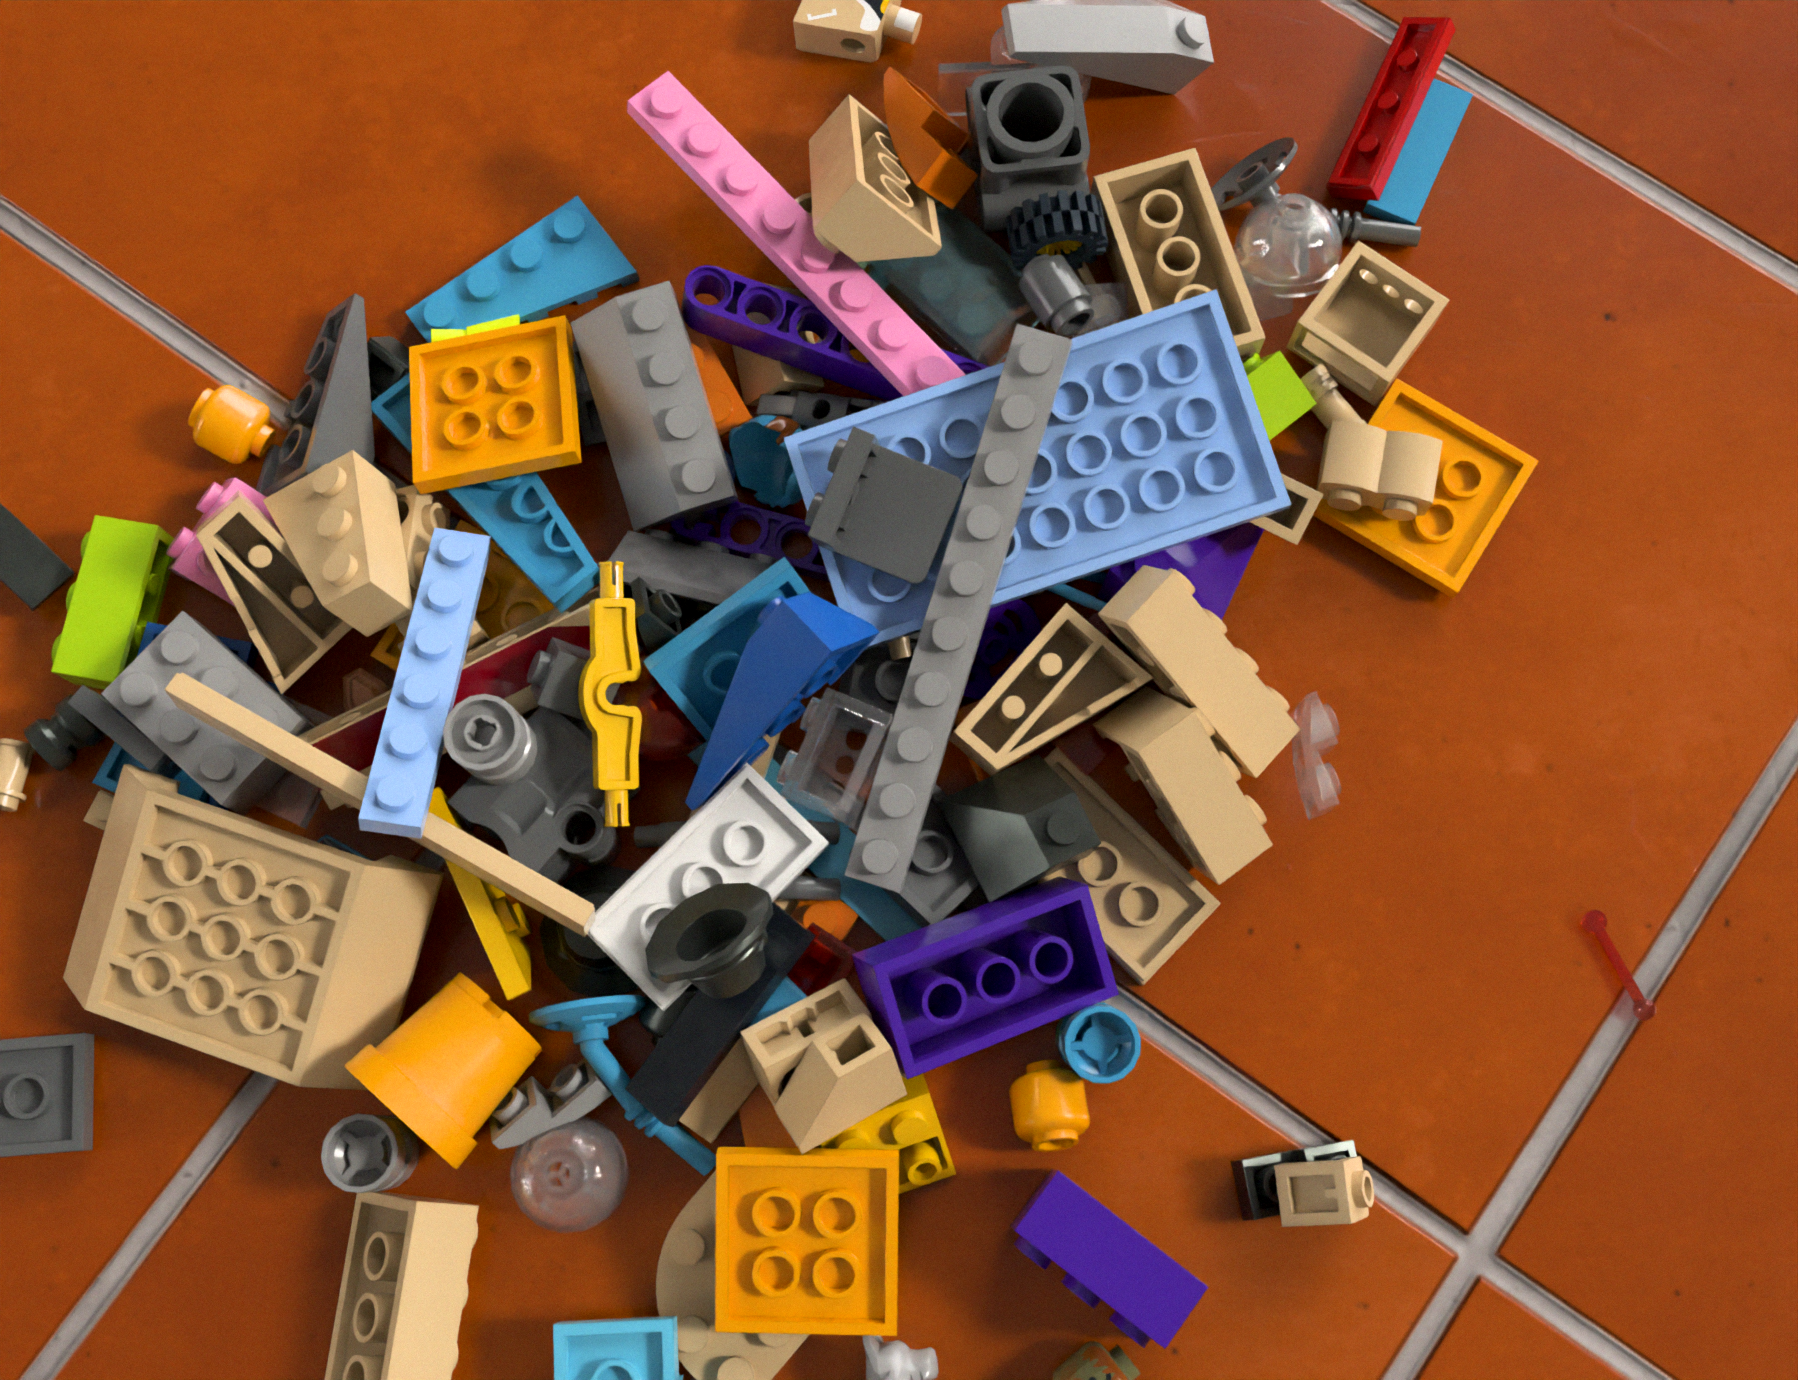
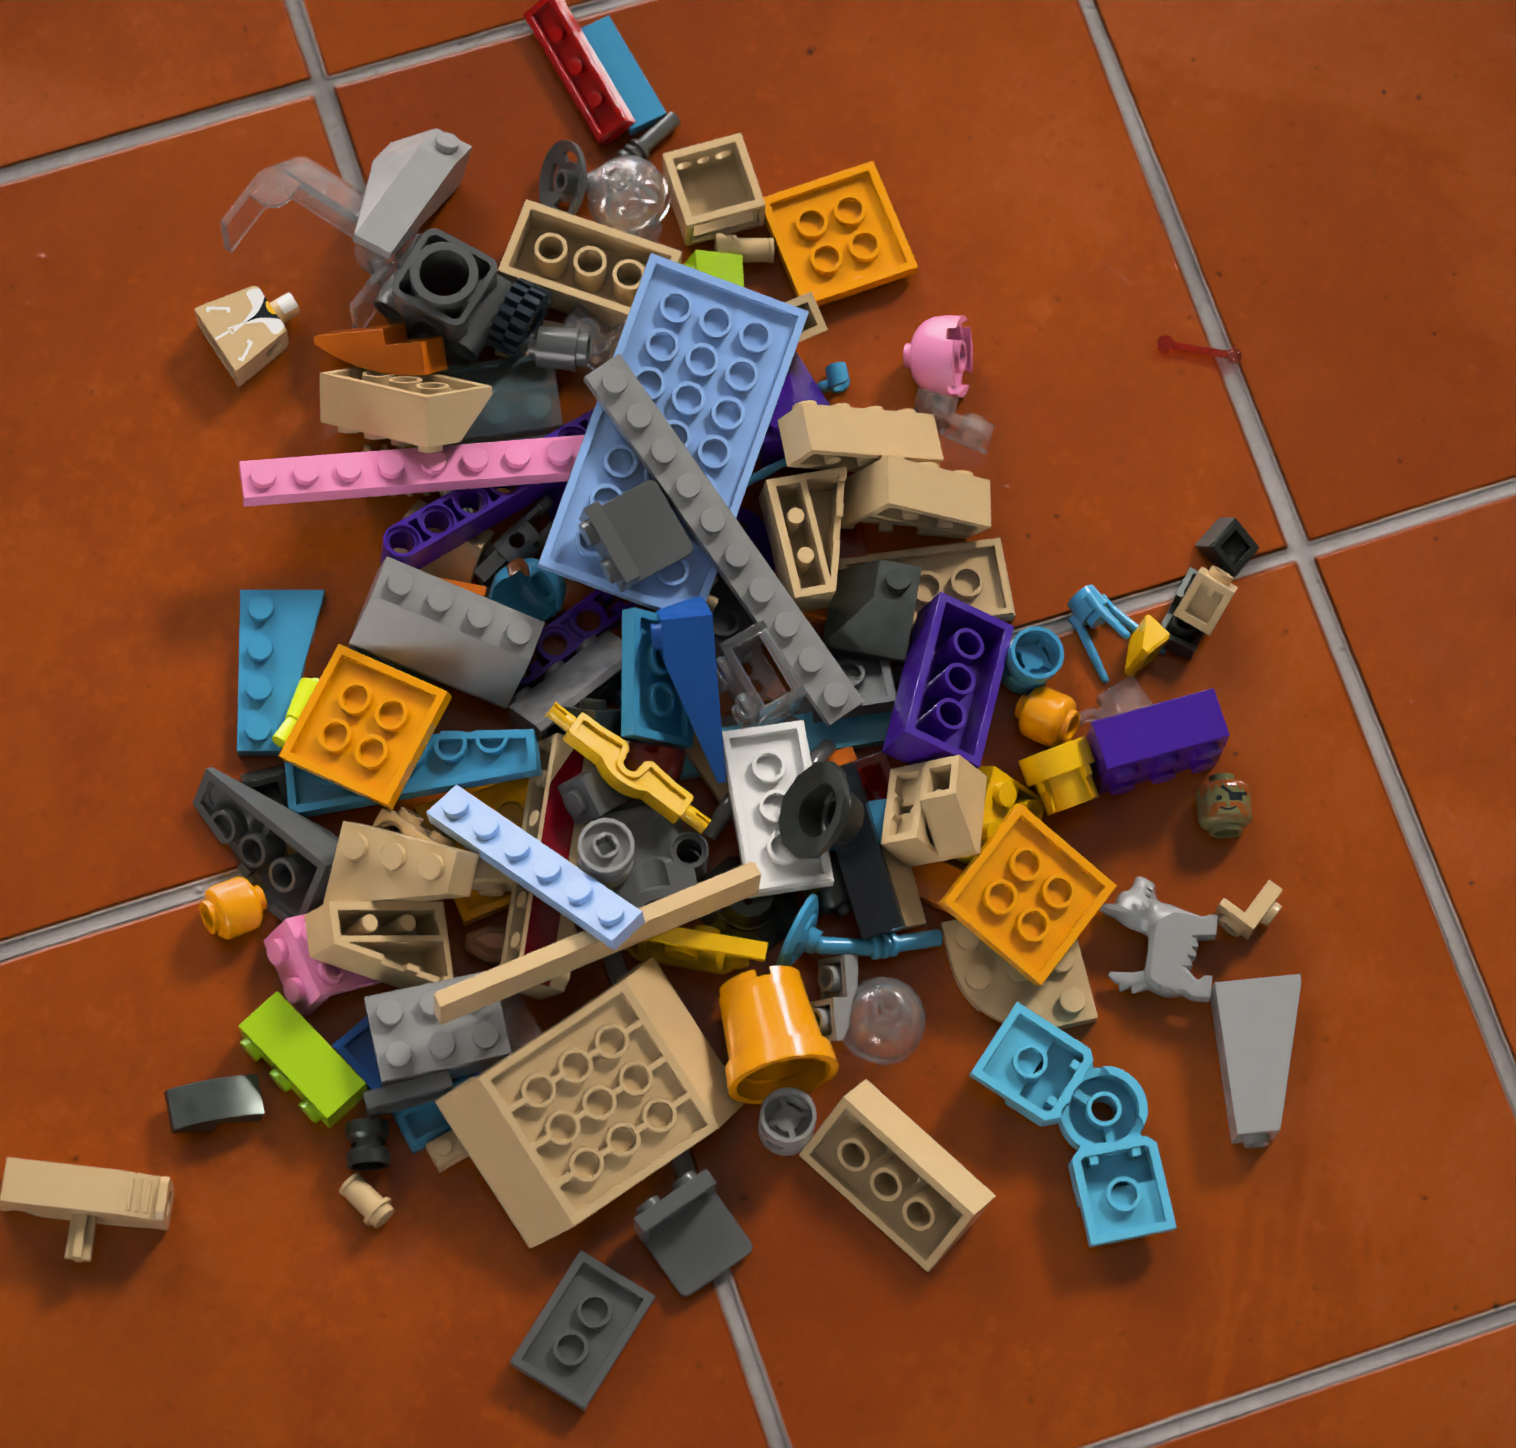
camera: 65 degrees left, 5 degrees down
(182, 1139) = (691, 1233): none -> dark grey bracket
(988, 1173) = (1061, 775): none -> yellow piece
(1128, 1179) = (1116, 700): none -> clear plate
(1215, 1066) = (1094, 609): none -> dark azure plant
(1217, 1154) = (1145, 645): none -> yellow slope
(1263, 603) = (837, 378): none -> dark azure hand
(1374, 689) = (940, 355): none -> bright pink cylinder
(1378, 469) = (811, 252): tan brick -> none
(1414, 1164) = (1227, 545): none -> pearl dark grey slope

